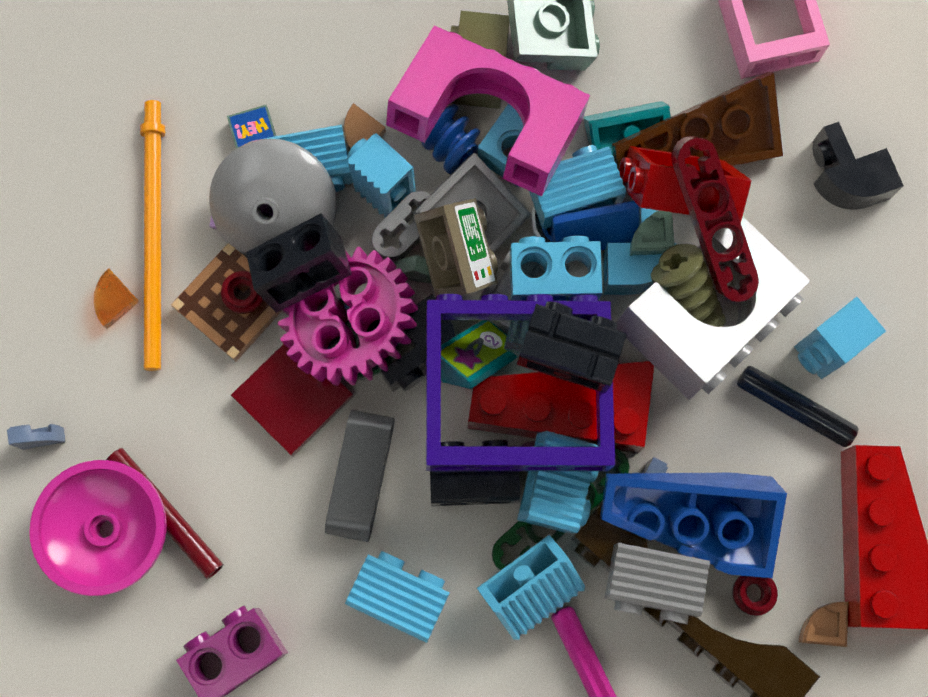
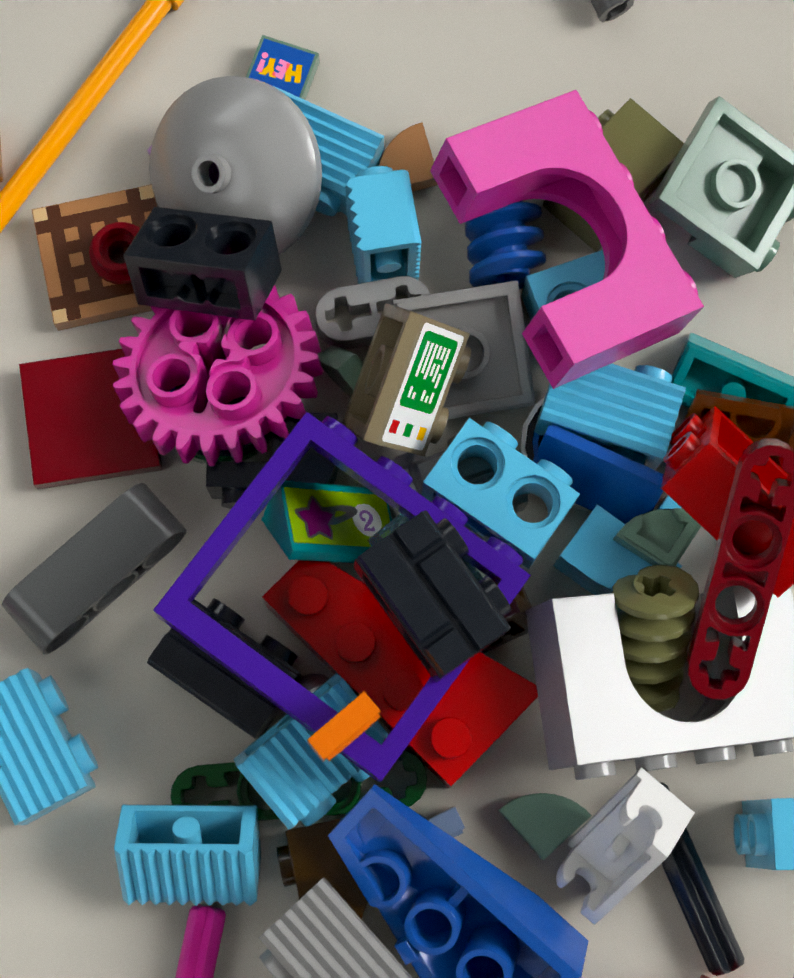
camera: 35 degrees right, 0 degrees up
(578, 449) = (344, 727): none -> orange tile
(701, 432) = (544, 820): none -> sand green tile
(755, 410) = (624, 842): none -> white hinge

